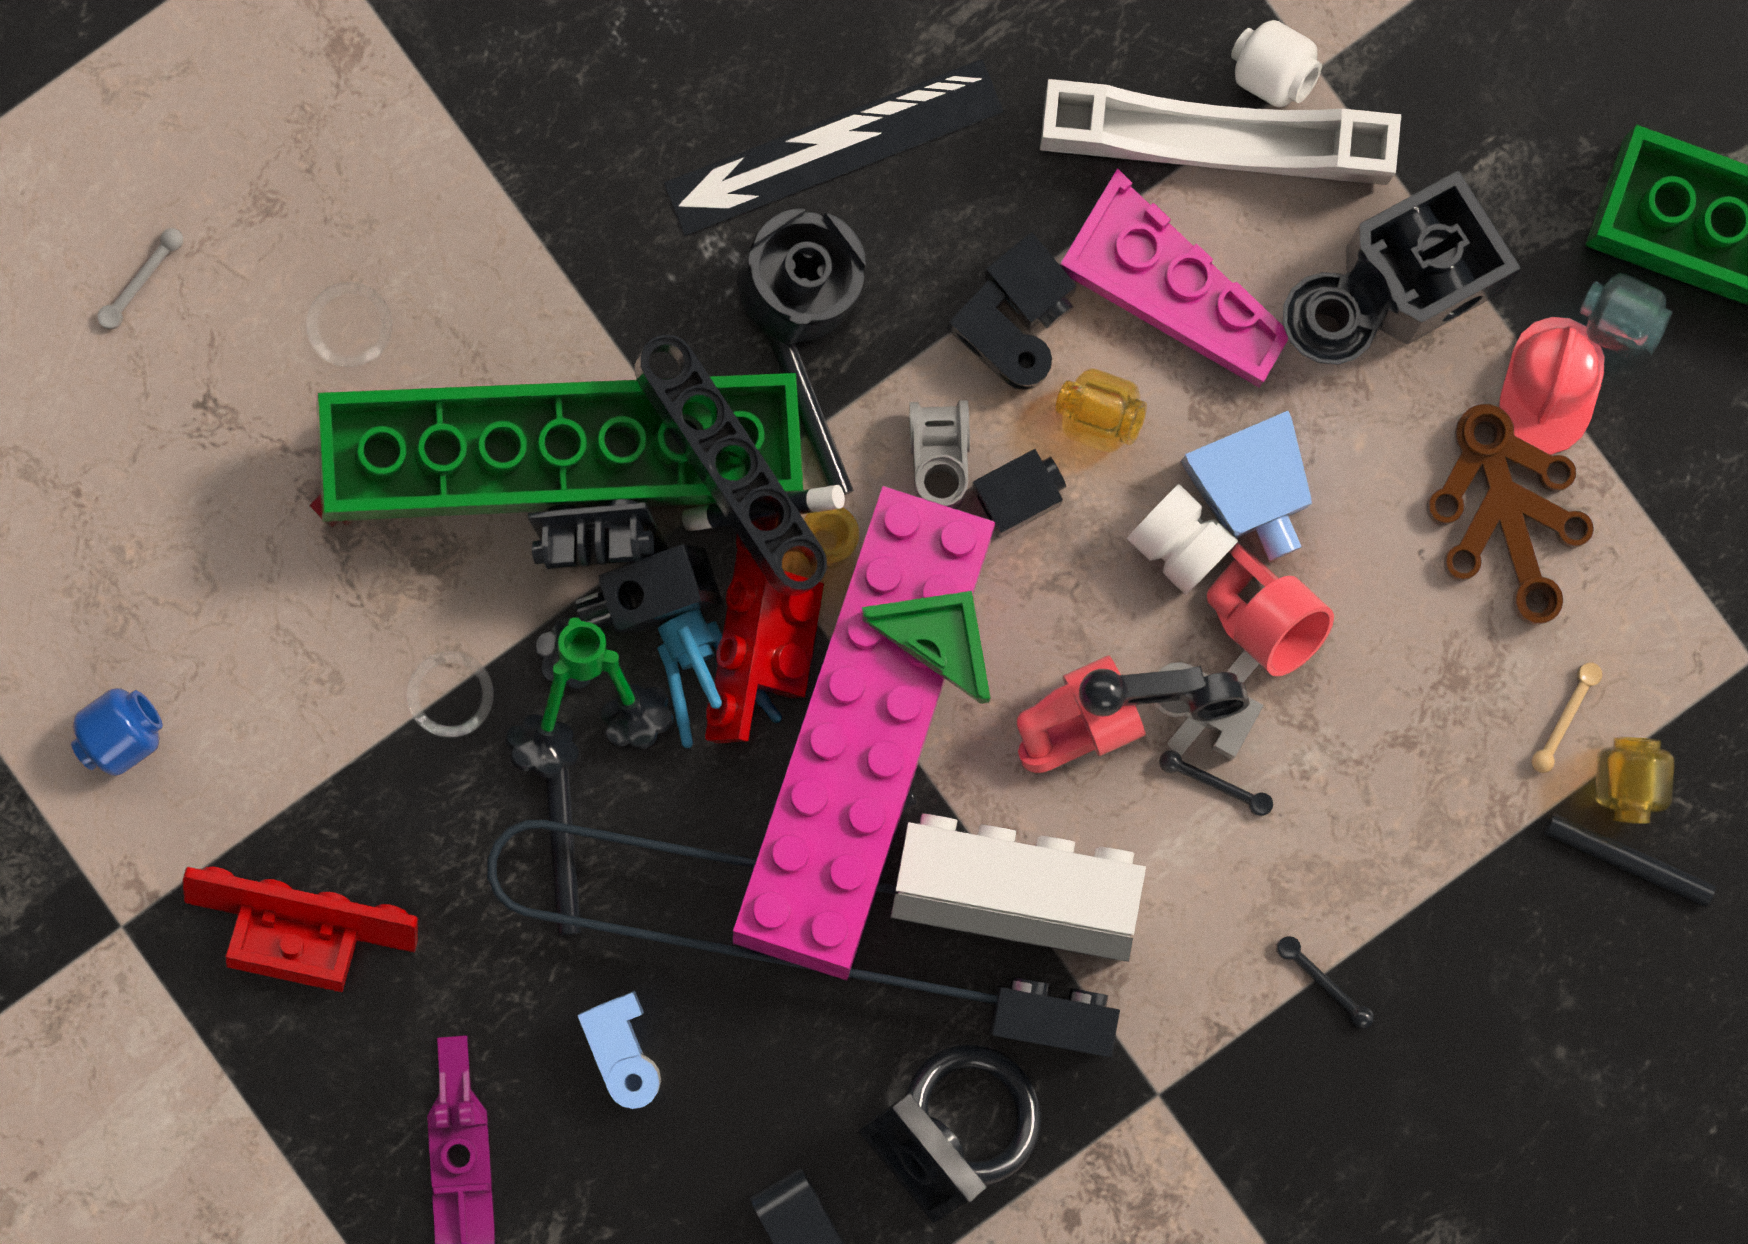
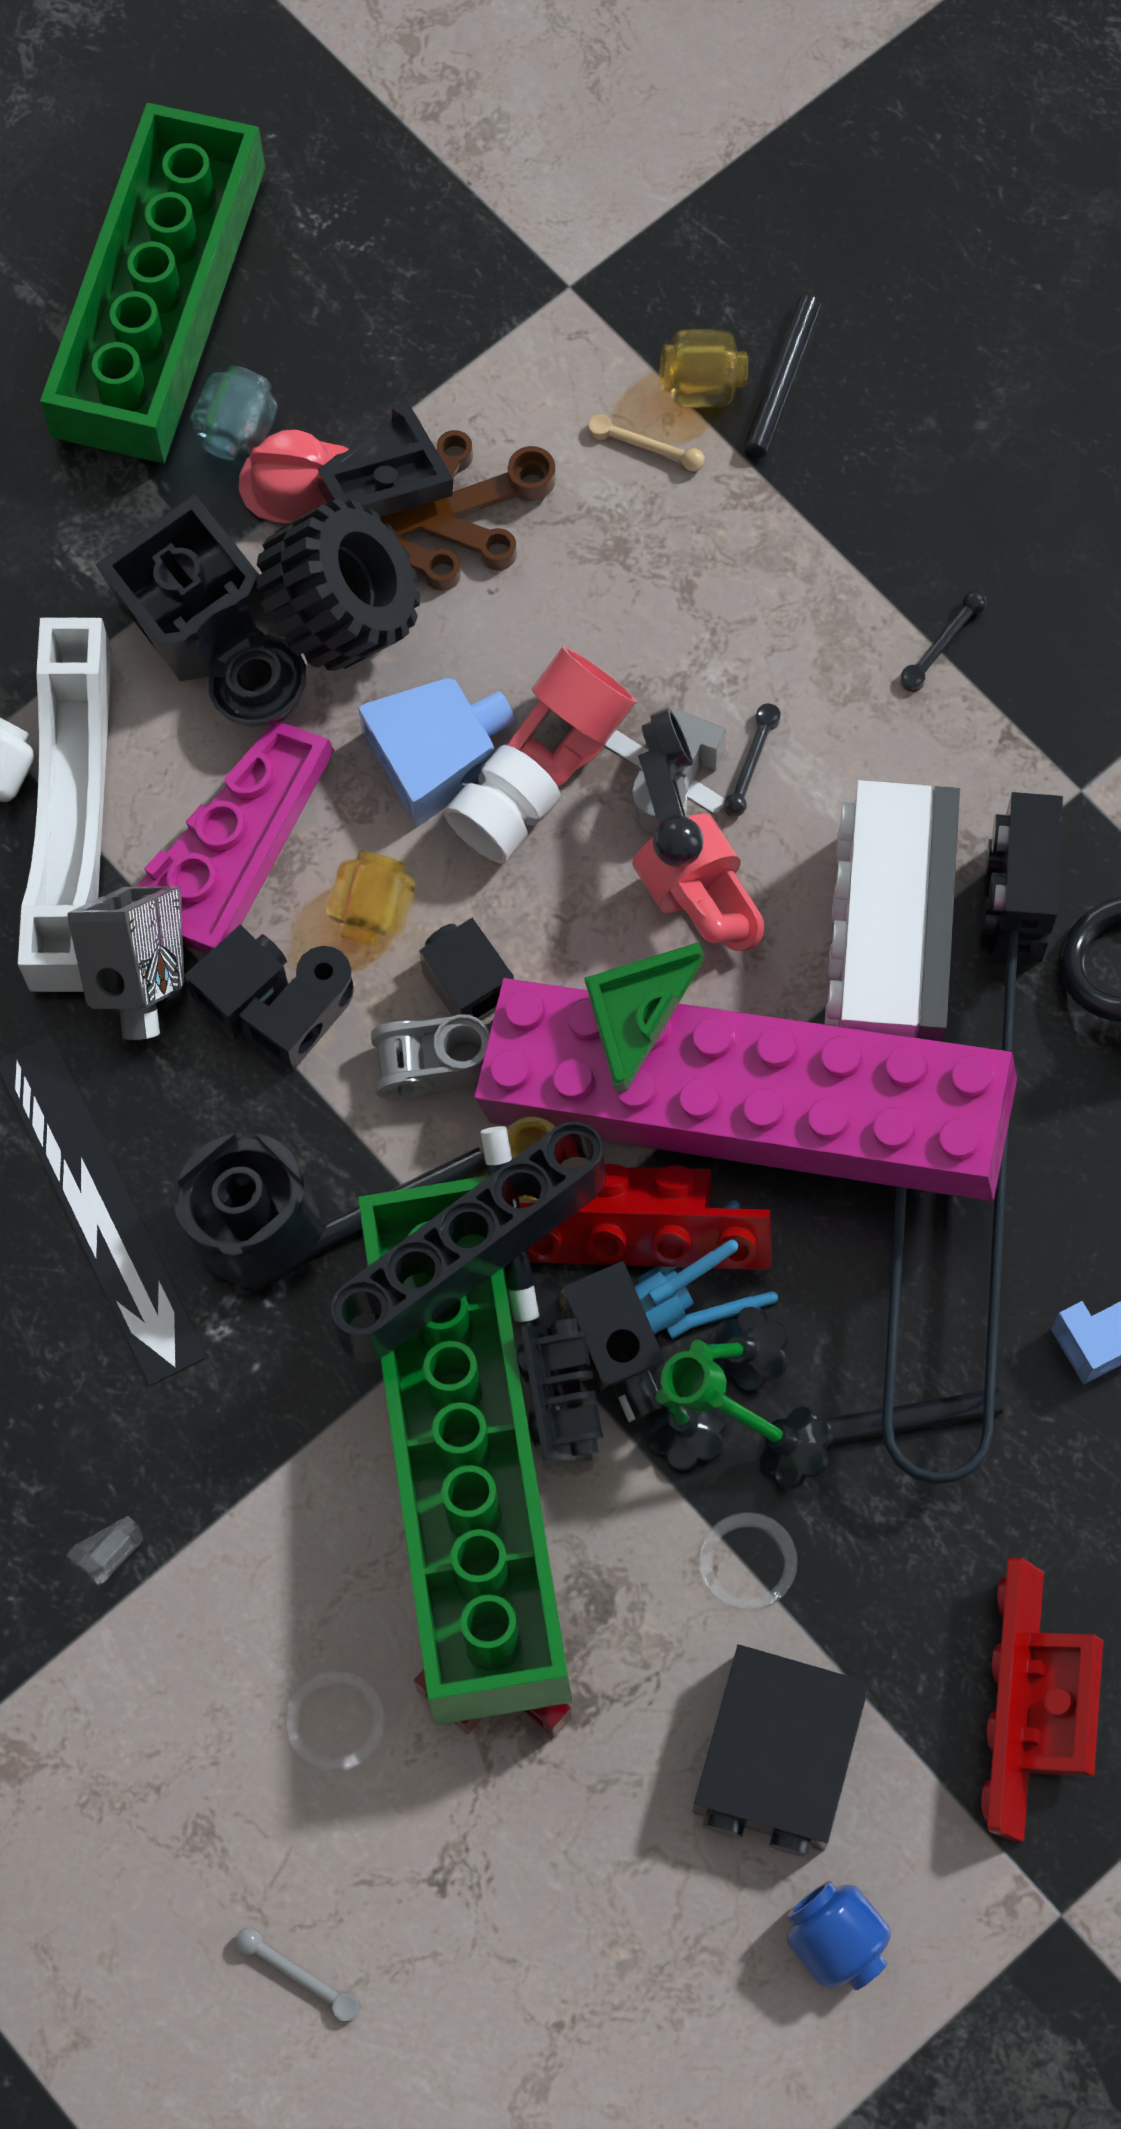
camera: 90 degrees left, 15 degrees down
(276, 700) = (780, 1751): none -> black brick
(511, 130) = (107, 1549): none -> clear slope
(1059, 184) = (130, 953): none -> dark grey torso
(1409, 364) = (338, 585): none -> black tyre
(1542, 456) = (388, 468): none -> black wing

